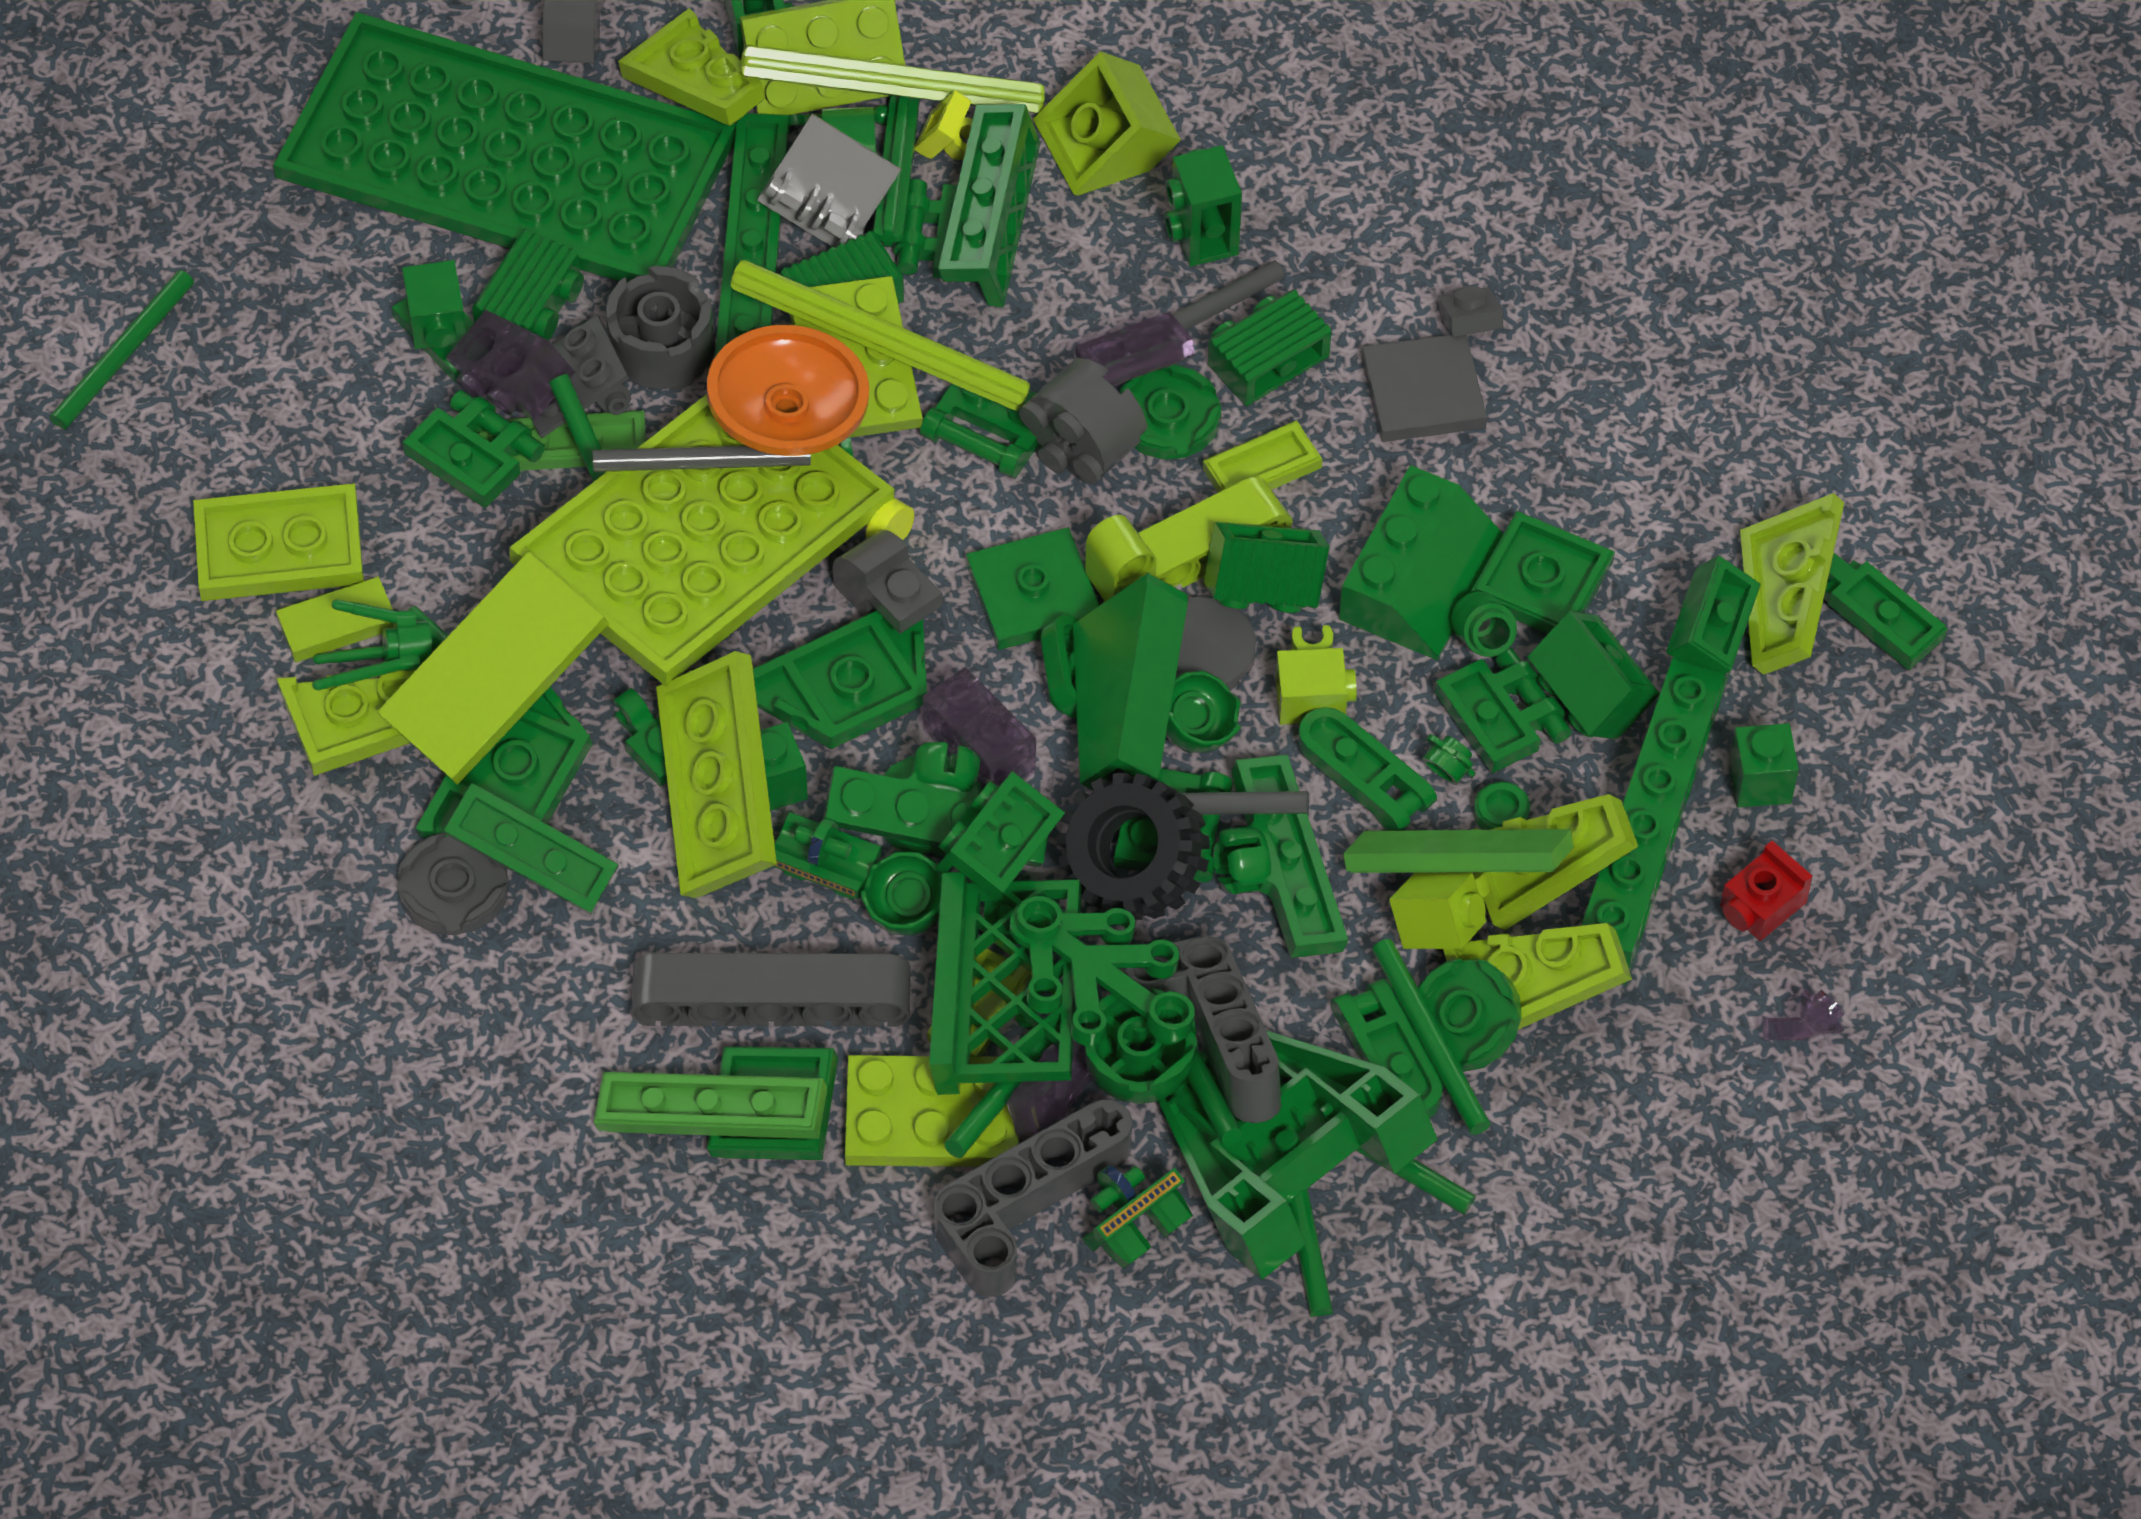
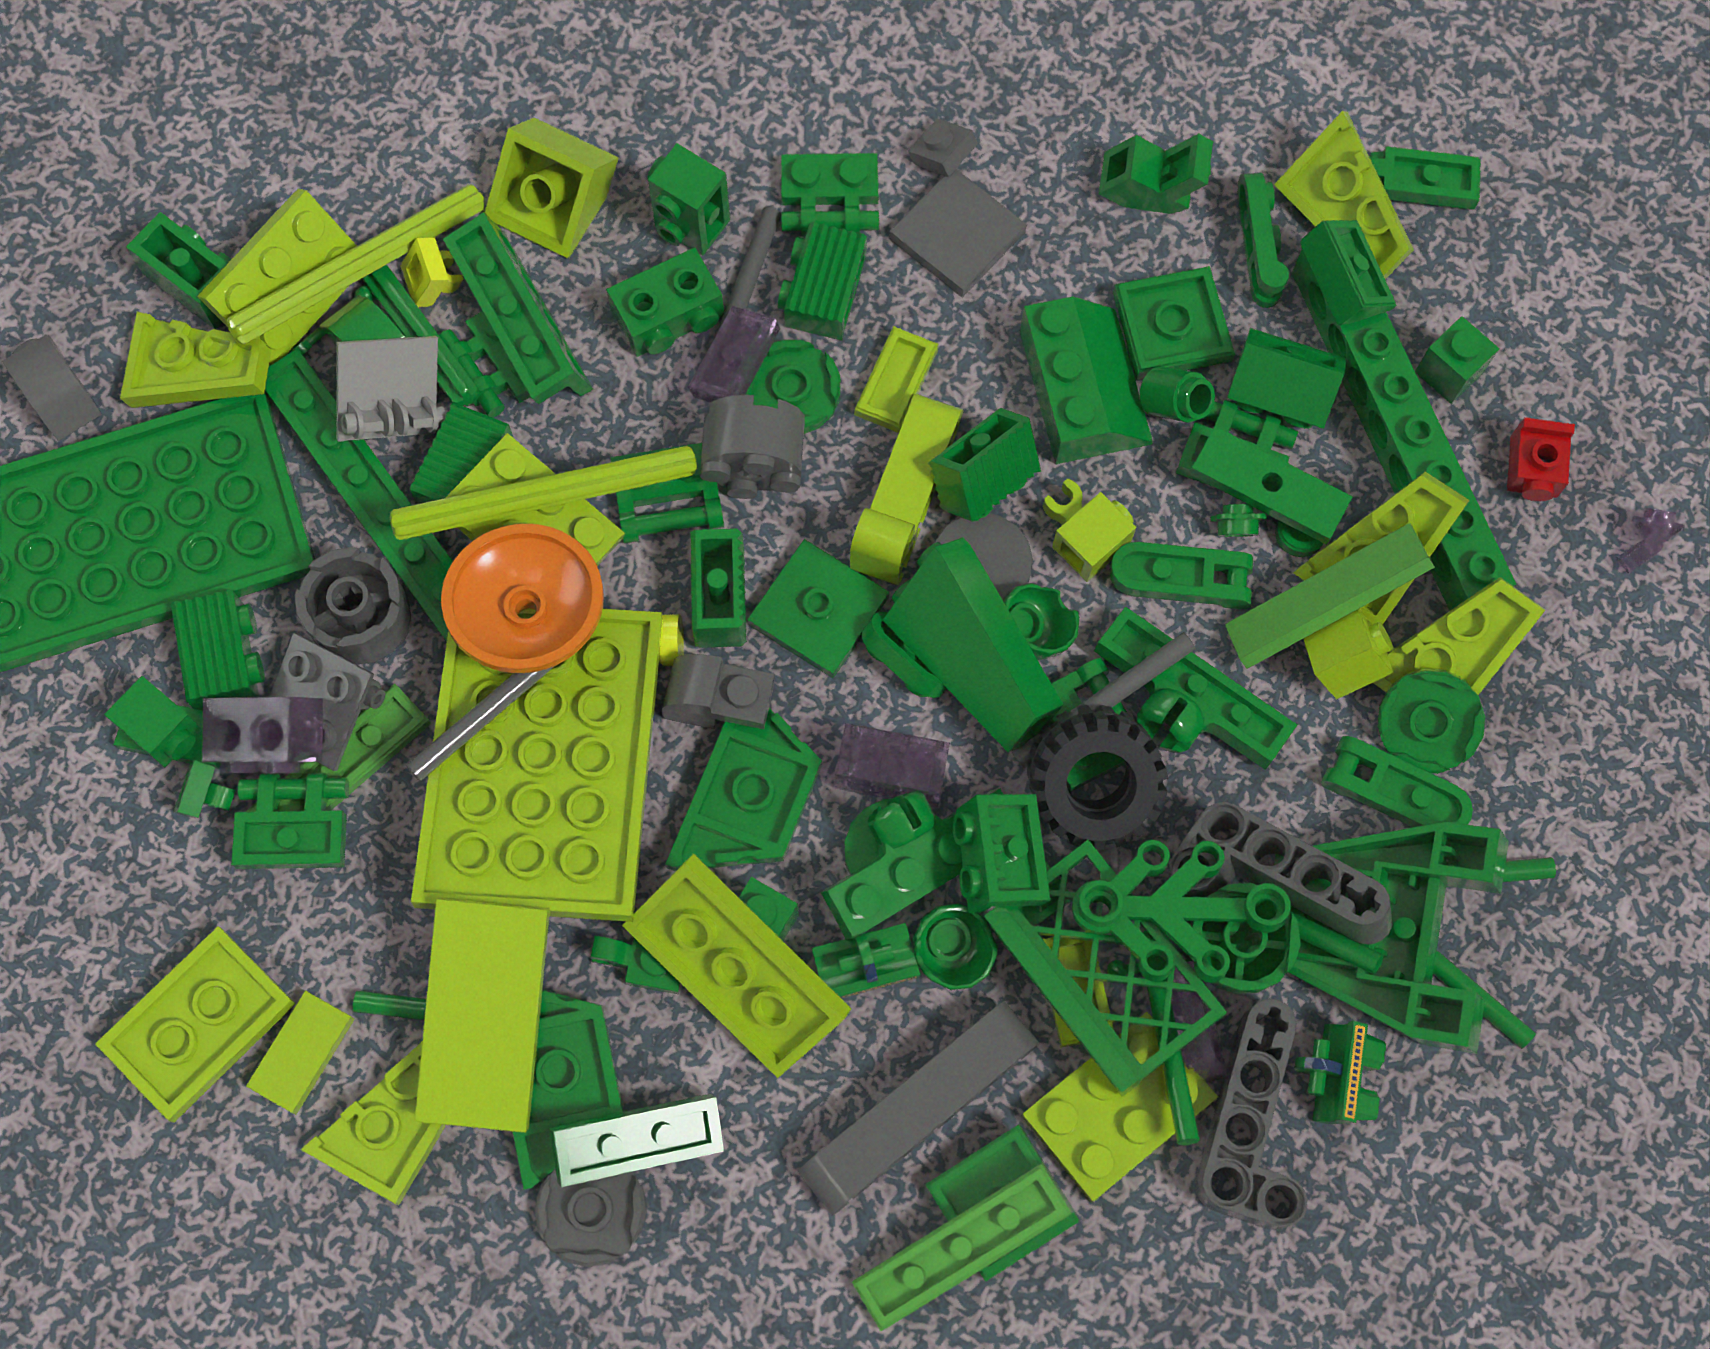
camera: 40 degrees left, 15 degrees up
(403, 646) = (380, 1036): green plant -> none
(426, 381) = (198, 791): none -> green tile
(576, 420) = (365, 742): green bar -> none
(959, 509) = (718, 588): none -> green brick
(1118, 275) = (666, 303): none -> green brick
(1349, 276) = (830, 180): none -> green plate
(1431, 1037) = (1426, 759): green bar -> none
(1483, 718) = (1298, 499): none -> green tile
(1630, 450) = (1155, 179): none -> green brick
(1676, 566) = (1261, 239): none -> green plate

